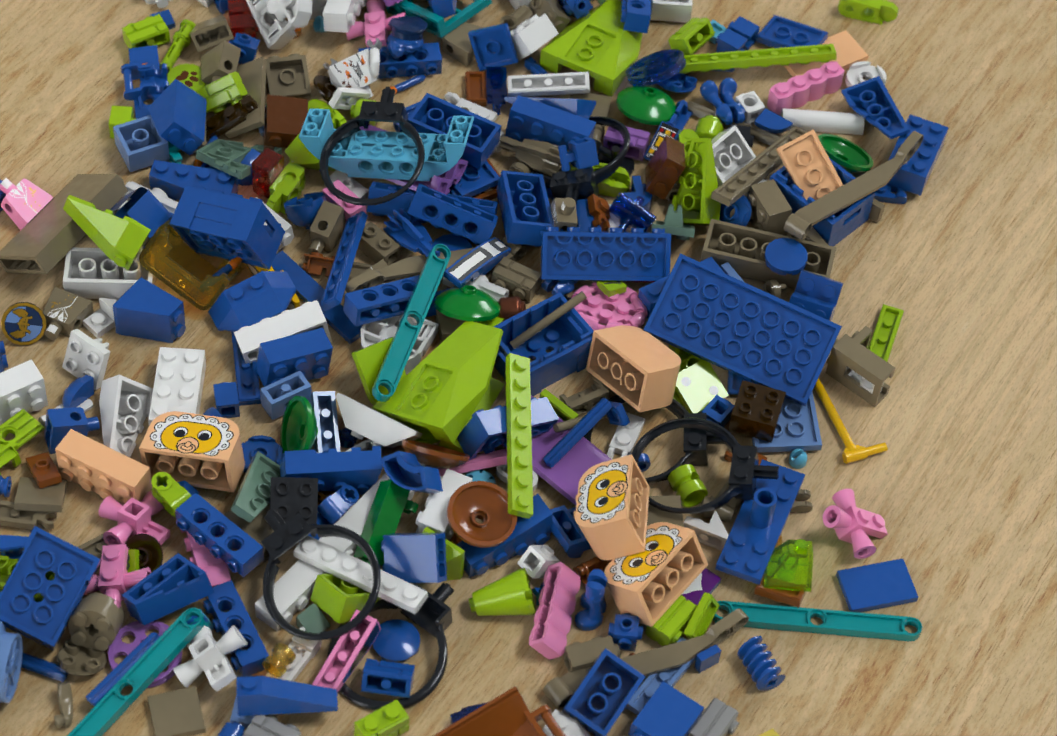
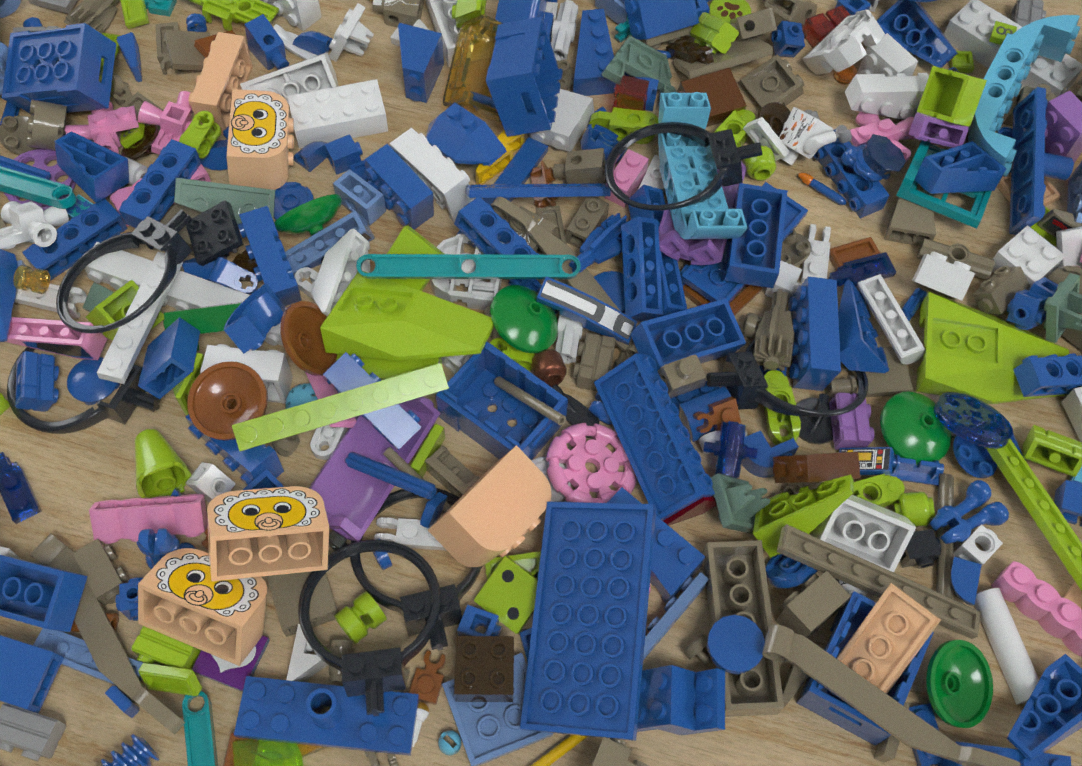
camera: 75 degrees right, 10 degrees up
(493, 46) = (908, 245): blue tile -> none
(581, 154) = (785, 367): blue brick -> none
(611, 287) = (620, 462): lime tile -> none

